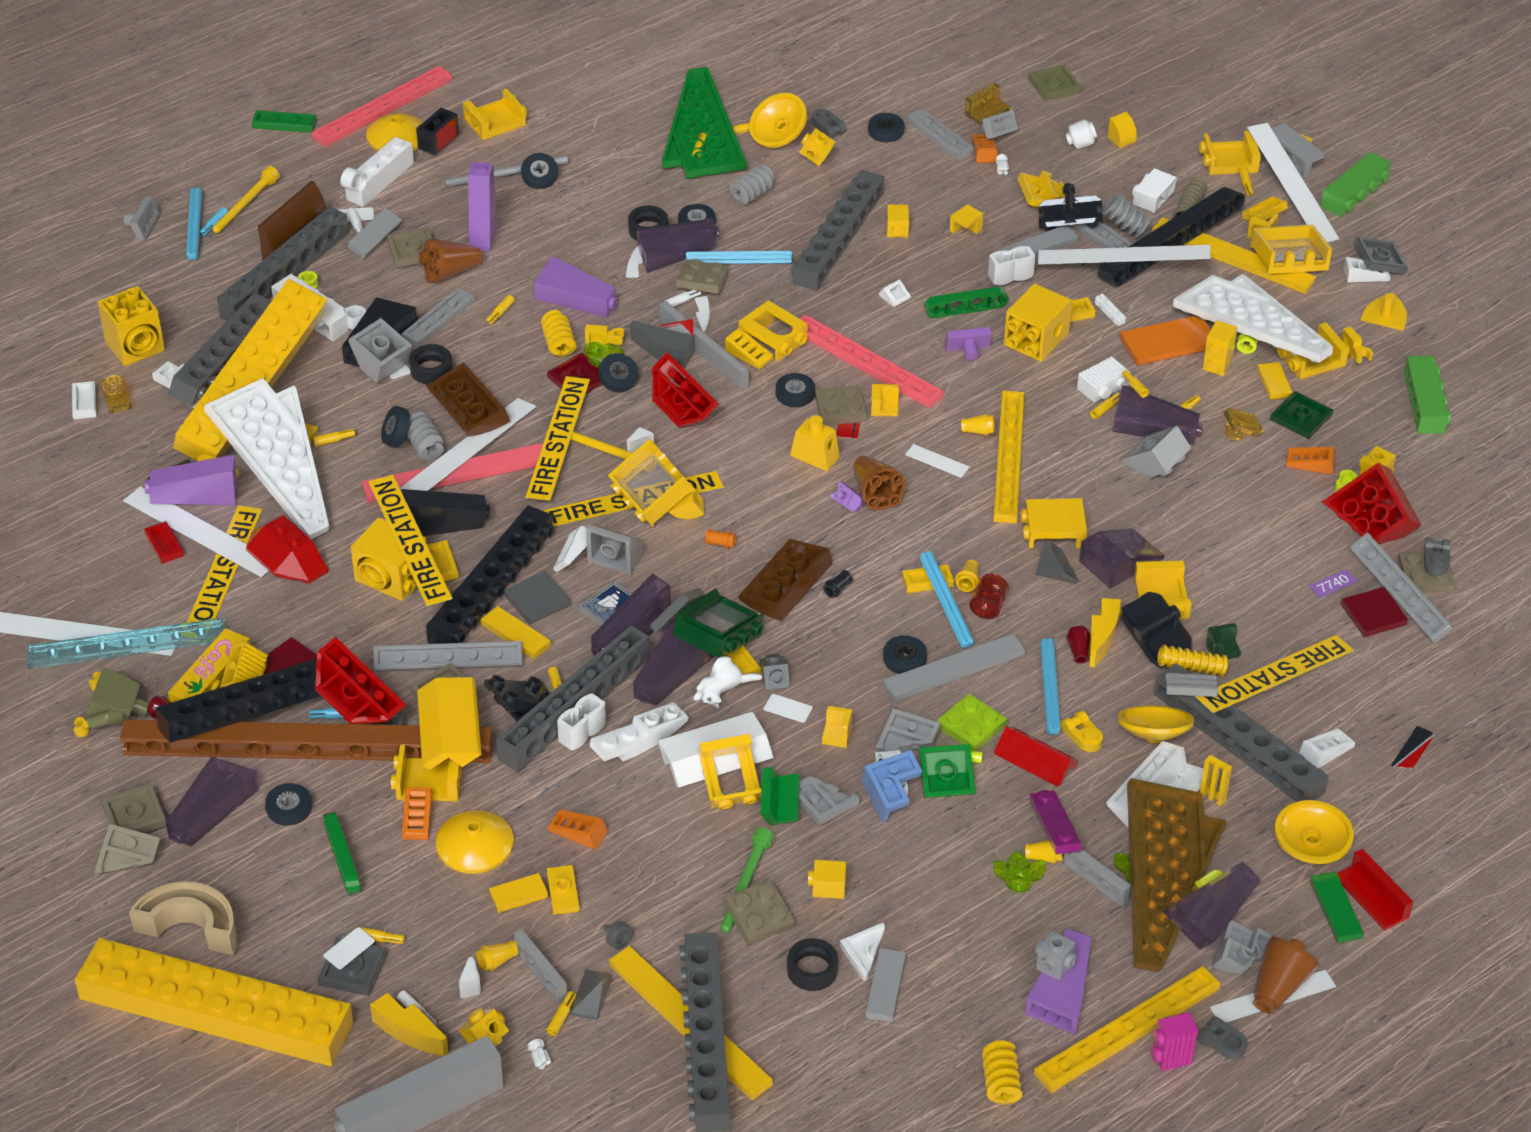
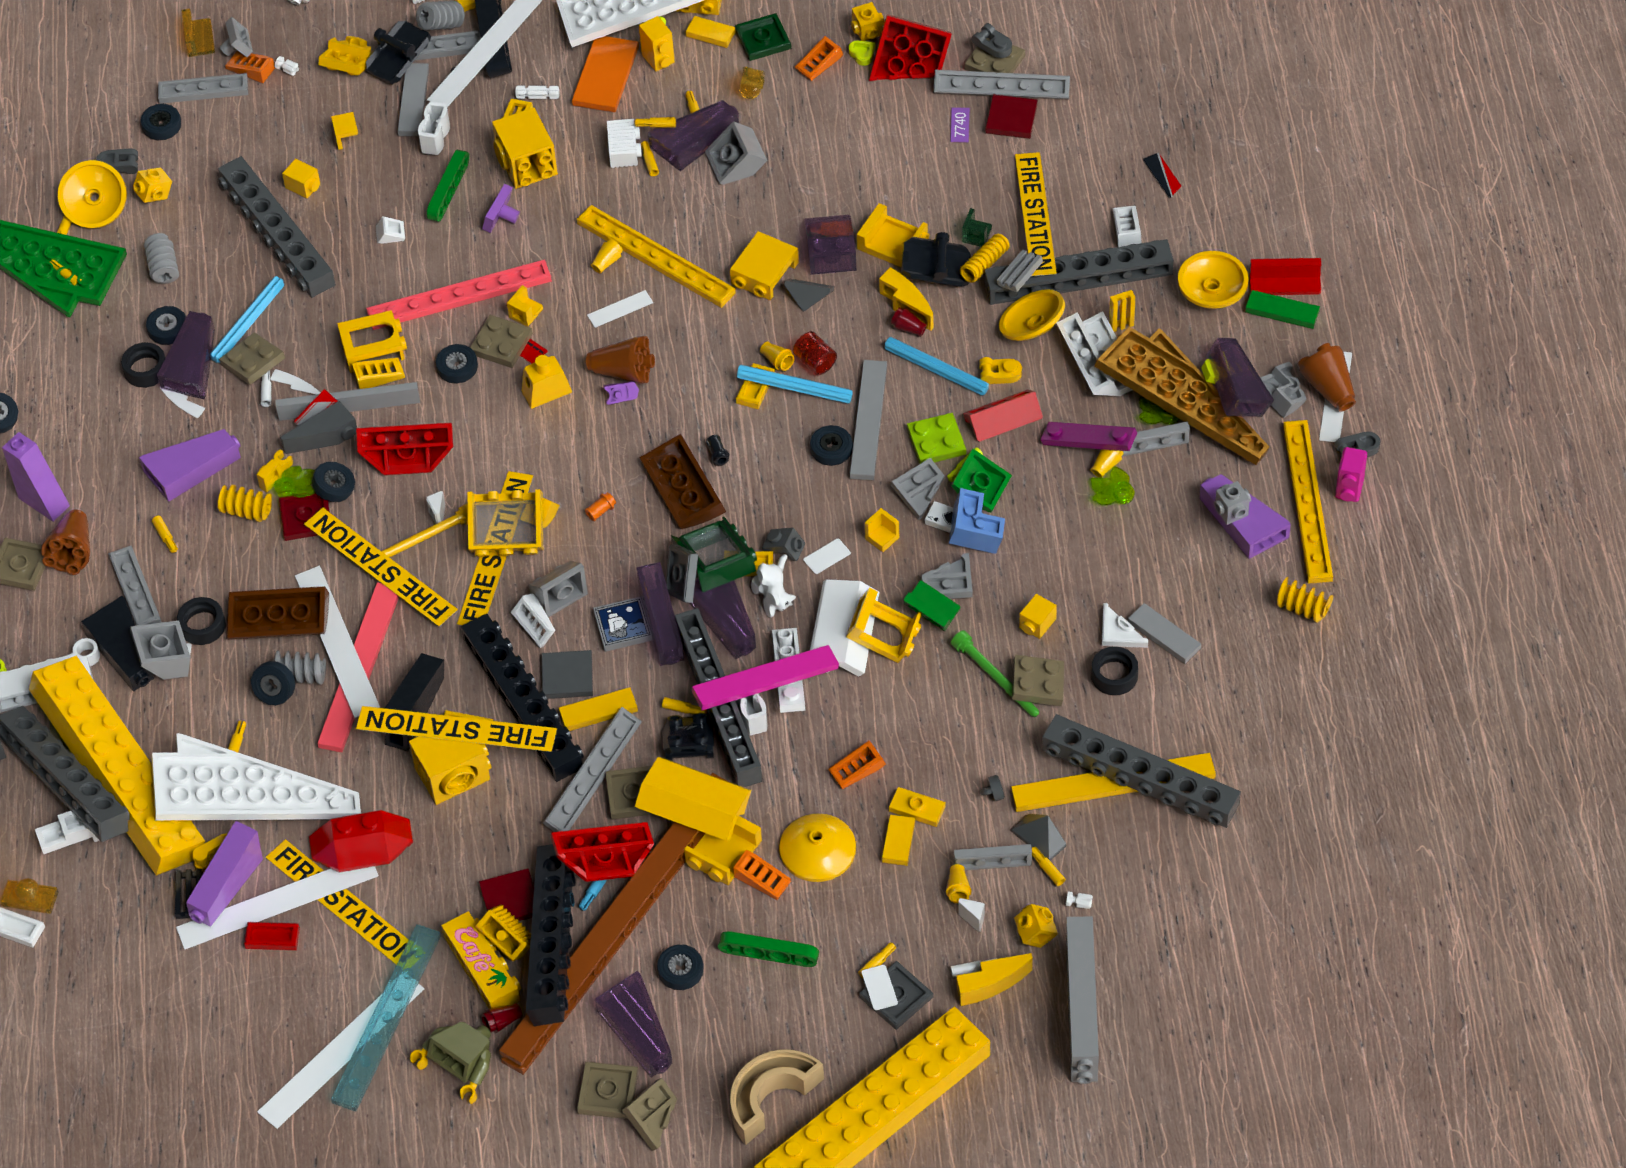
camera: 55 degrees left, 10 degrees up
(607, 711) = (765, 677): none -> dark pink tile

